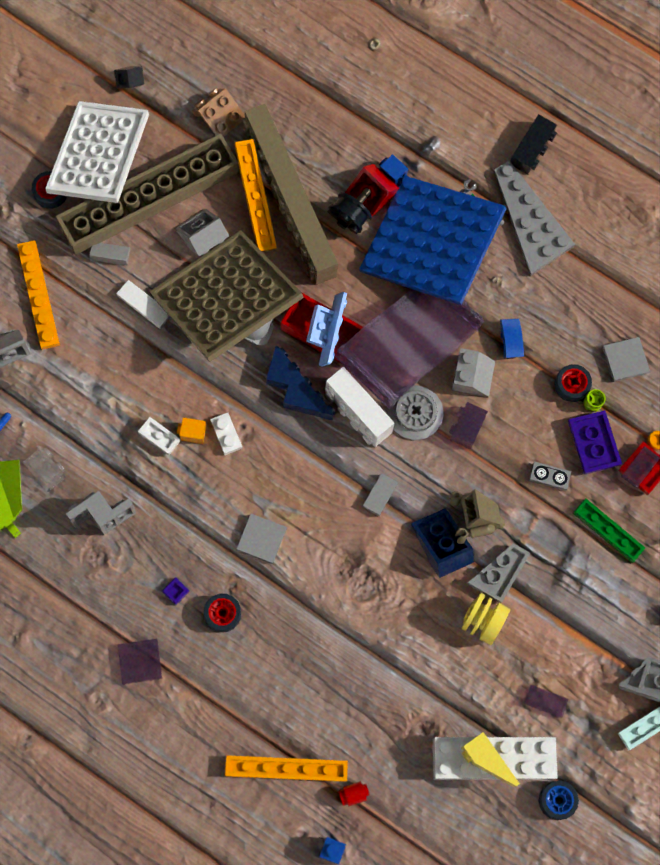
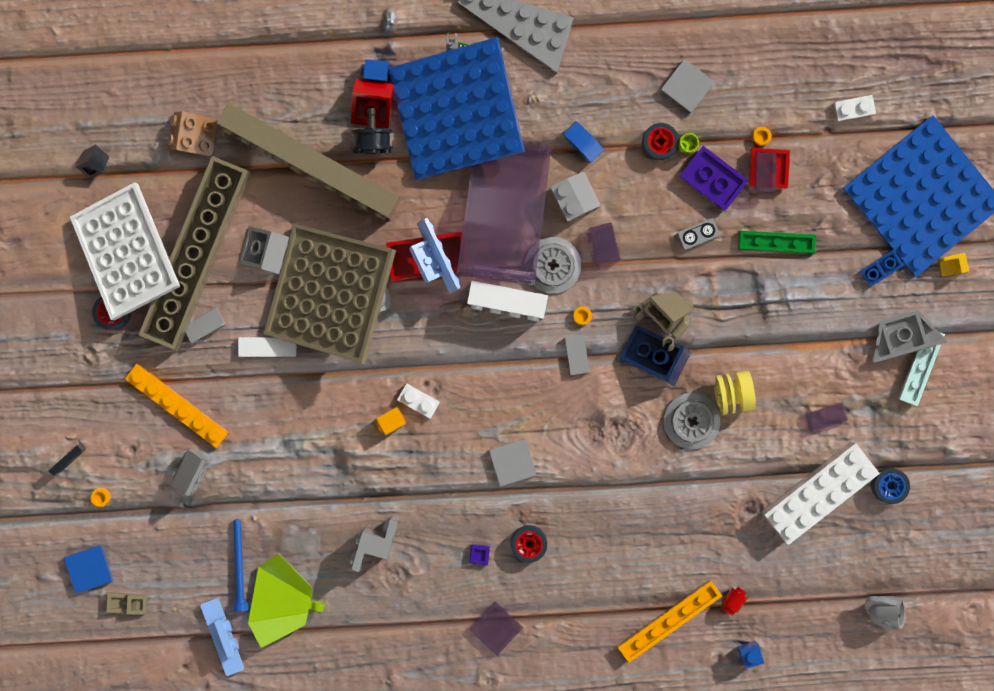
camera: 30 degrees left, 15 degrees up
(159, 436) = (368, 445): white plate -> none
(255, 195) = (283, 186): light orange plate -> none
(299, 393) = (449, 323): dark blue slope -> none
(408, 468) = (582, 315): none -> light orange tile
(426, 632) = (677, 423): none -> light grey piece
(484, 756) = (816, 503): light yellow slope -> none
(501, 573) = (718, 345): light grey wing -> none

